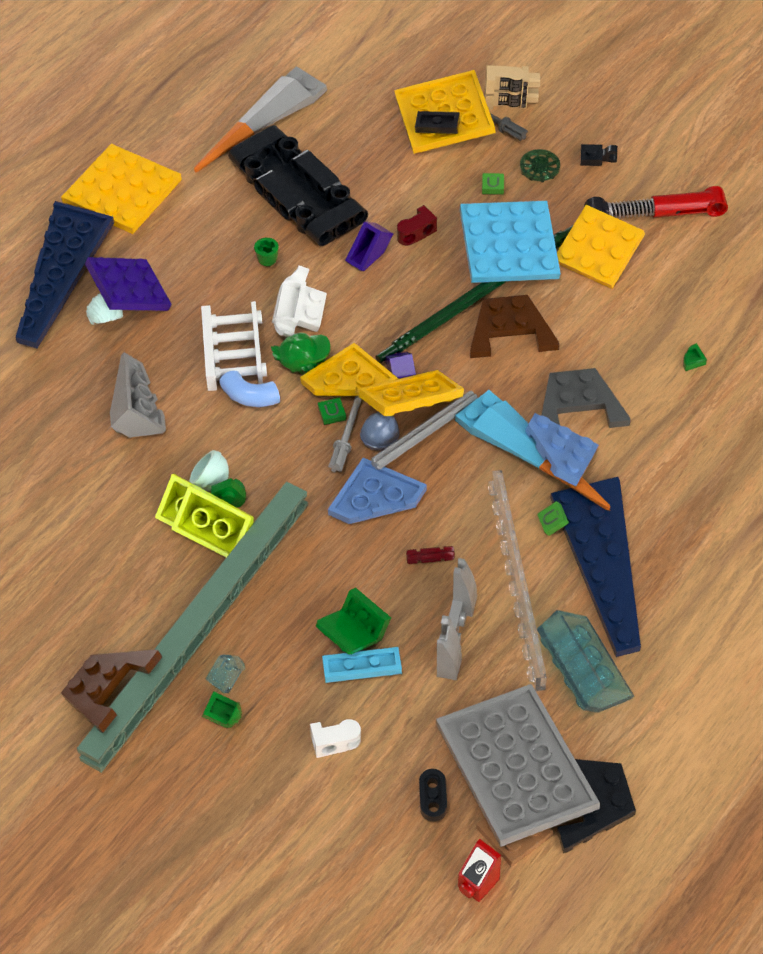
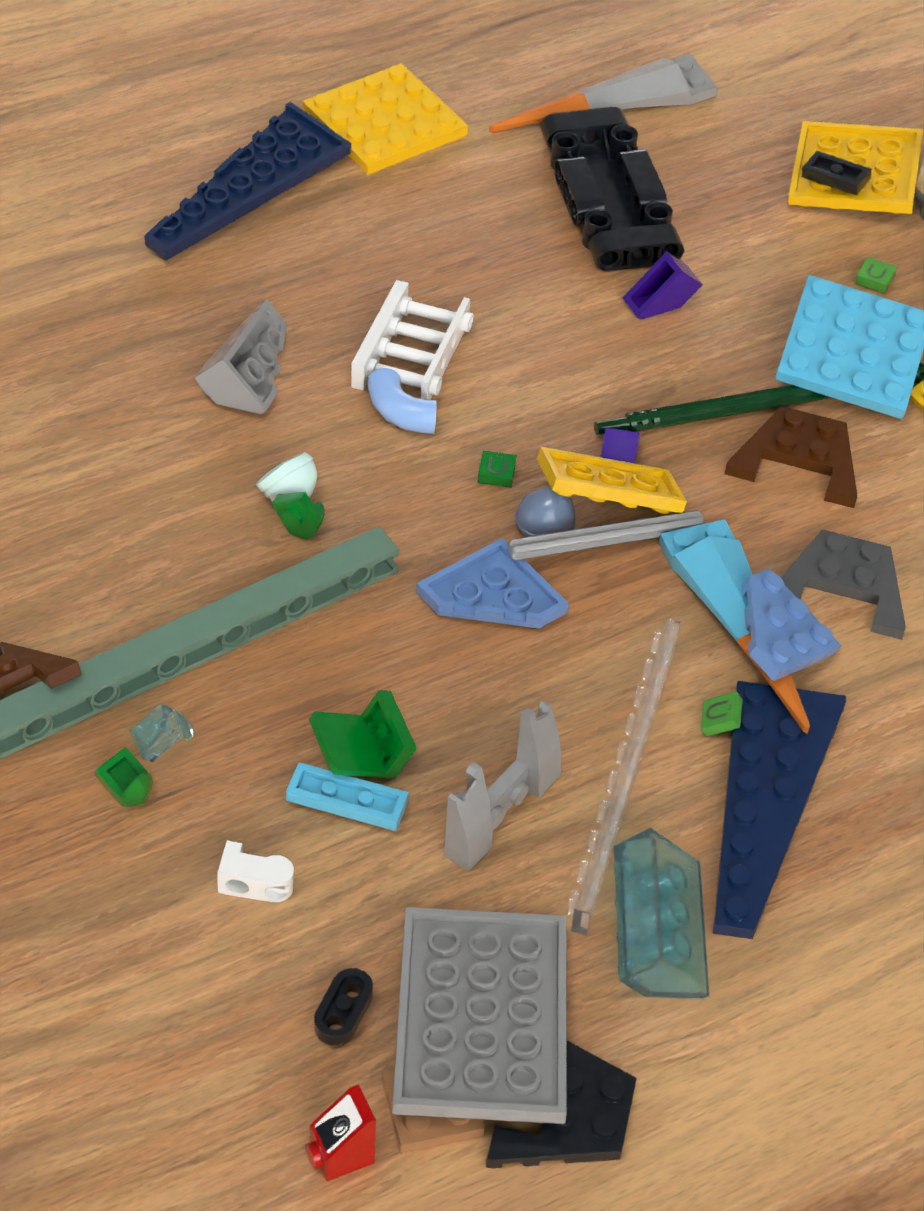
camera: 20 degrees right, 5 degrees down
(98, 311) = (274, 241): light aqua hair -> none
(128, 284) = (320, 223): dark purple plate -> none
(202, 516) = (245, 527): neon yellow slope -> none
(266, 251) = (522, 248): green hat -> none
(298, 305) = (527, 326): white plate -> none
(302, 352) = (497, 382): green hair -> none
(342, 447) = (484, 516): light grey piece -> none
(346, 373) = (538, 424): yellow plate -> none
(416, 227) = (740, 289): dark red leg -> none
(432, 554) = (522, 694): dark red axle -> none

